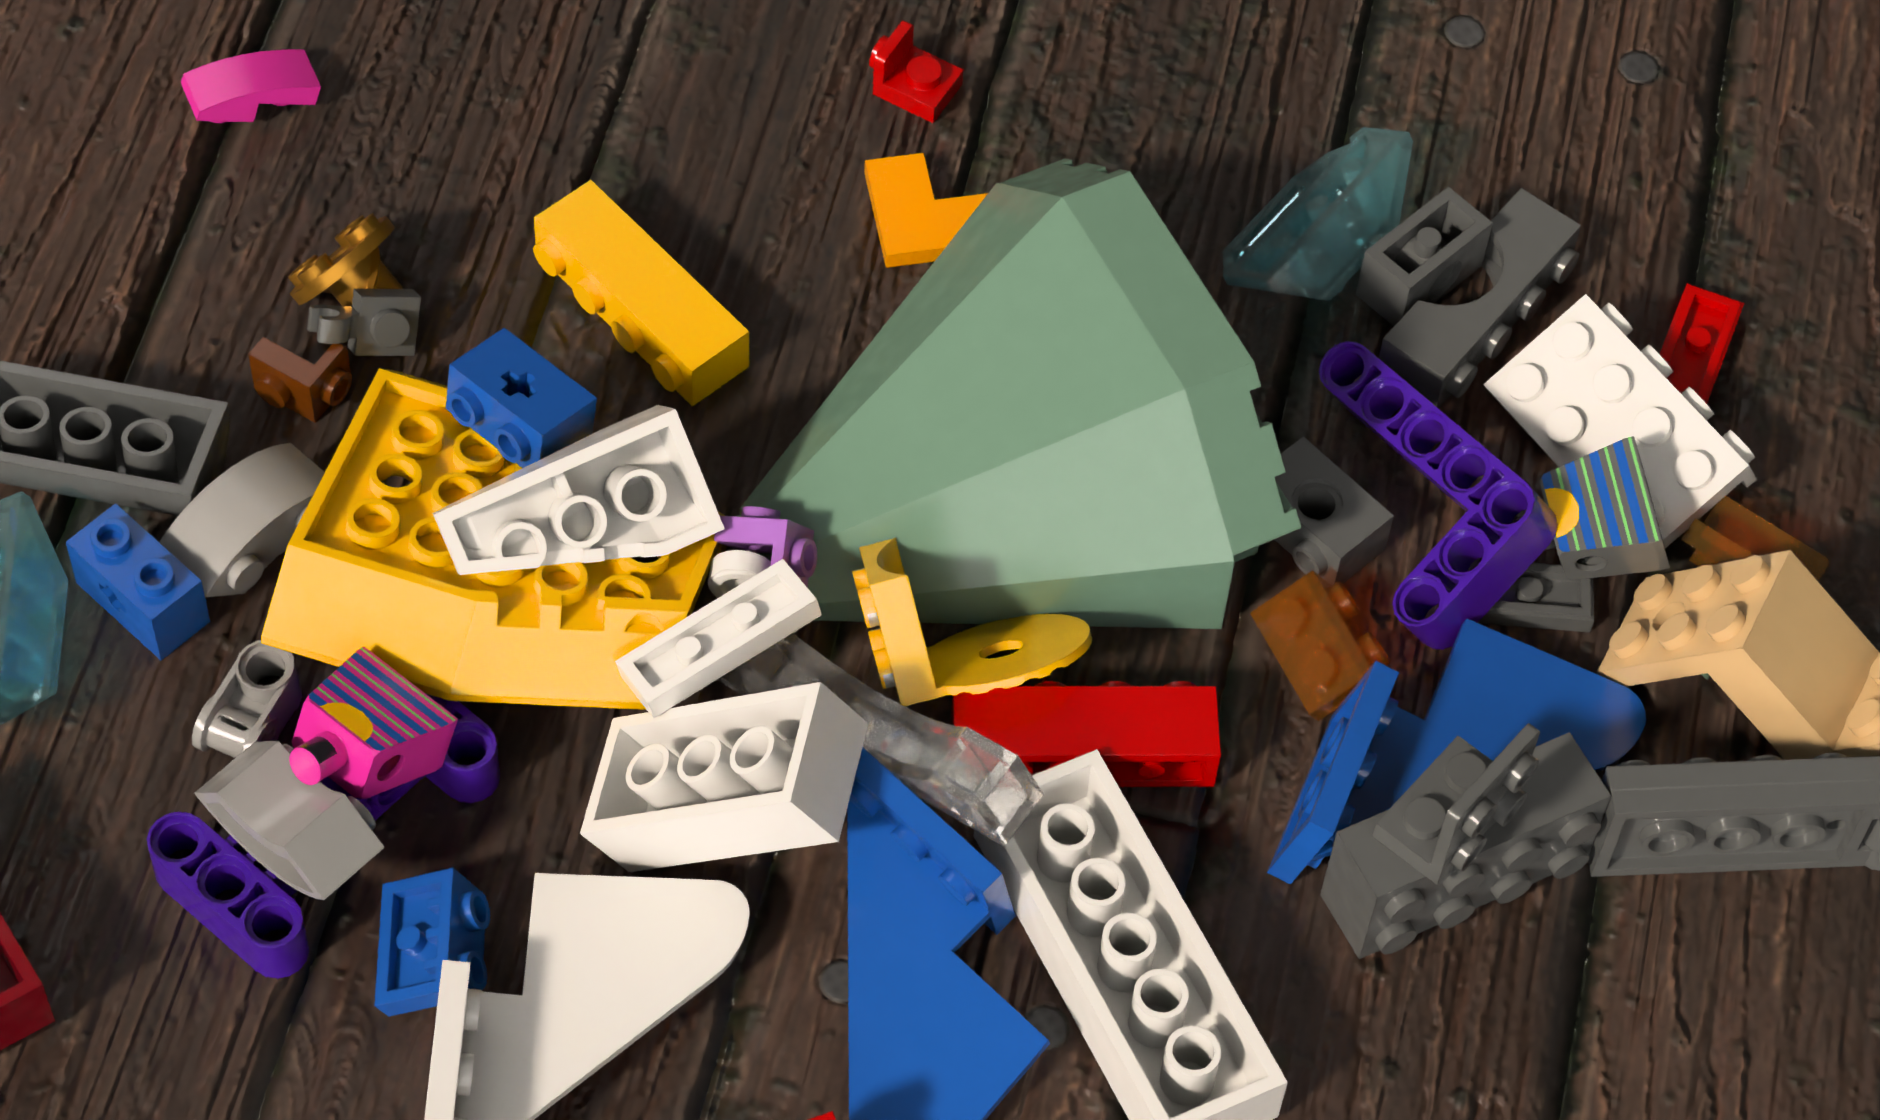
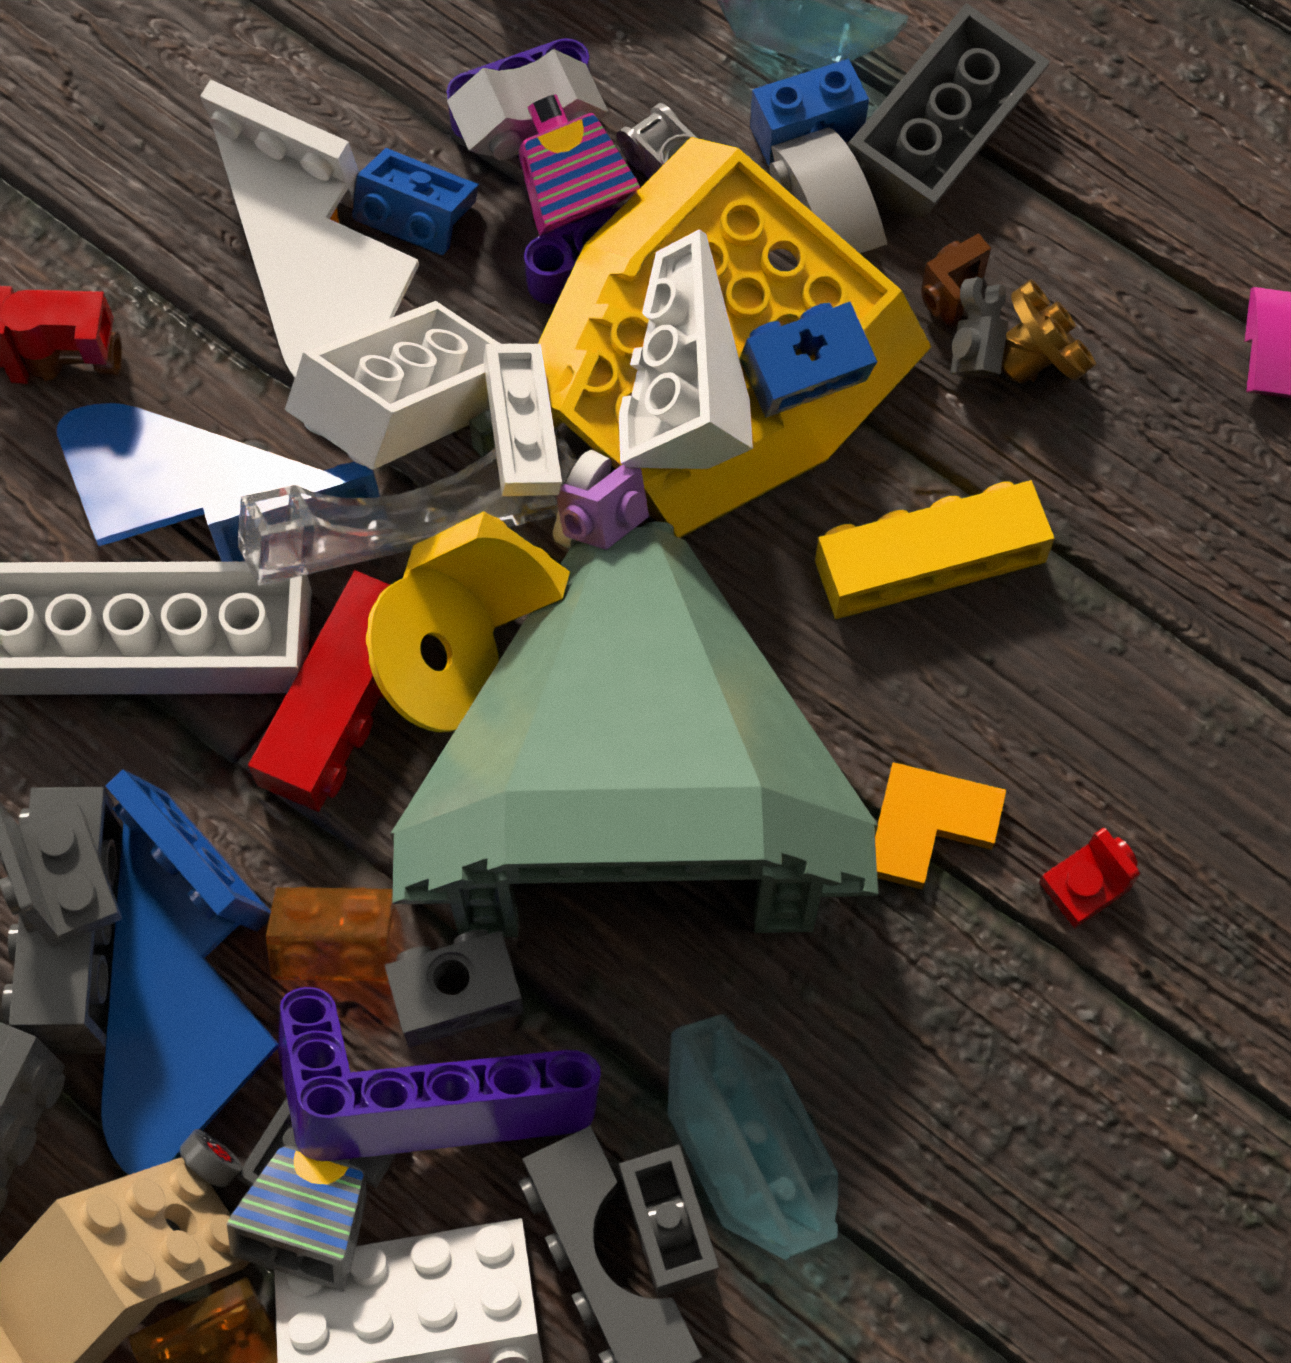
camera: 120 degrees right, 10 degrees up
(1594, 640) = (210, 1158): none -> dark grey tile

